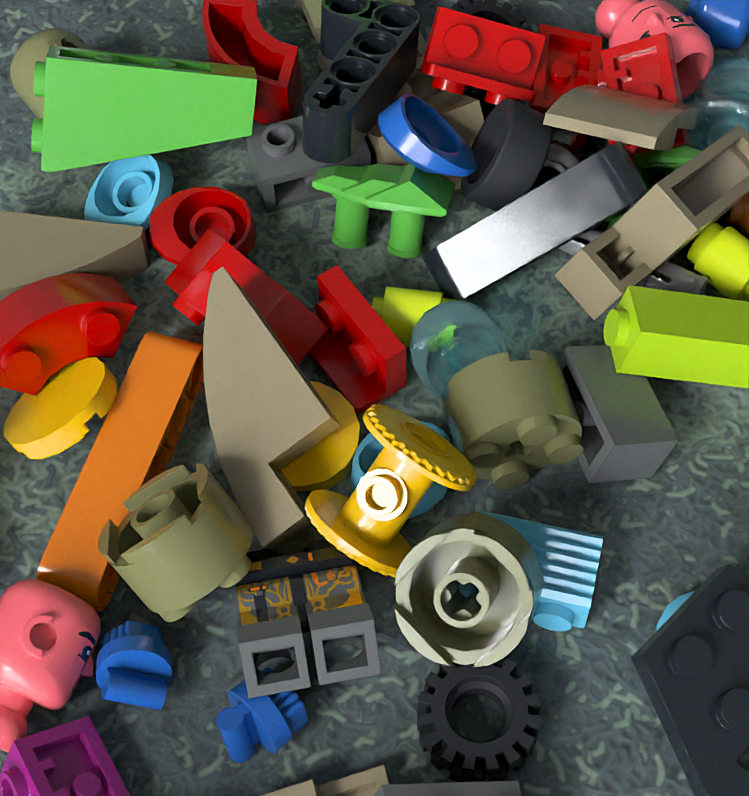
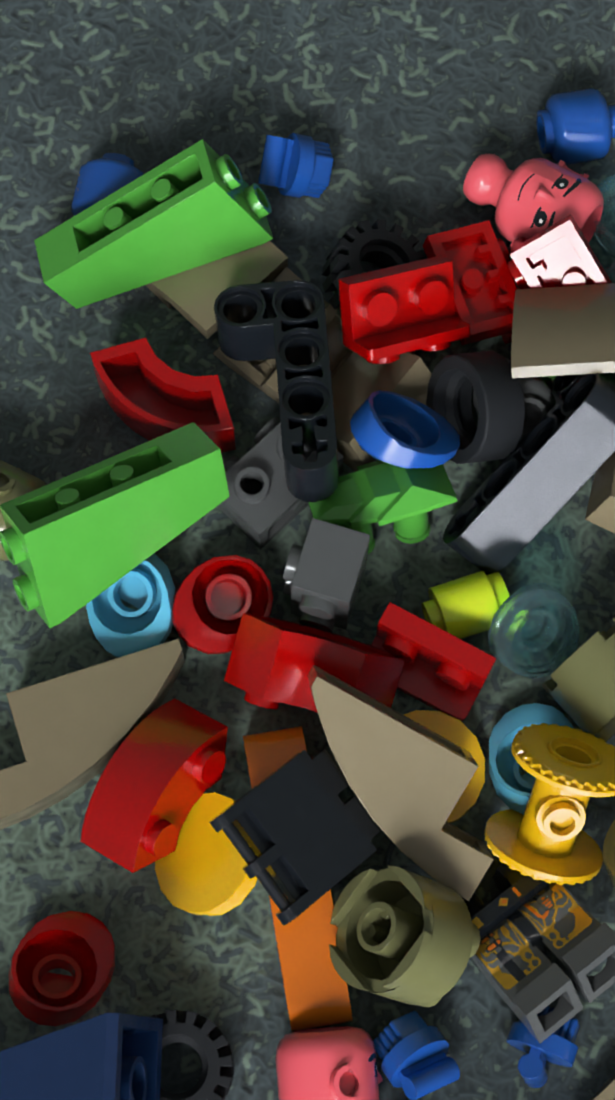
camera: 30 degrees left, 15 degrees up
(136, 405) = (299, 832): none -> black plate
(300, 229) = (326, 575): none -> dark grey brick

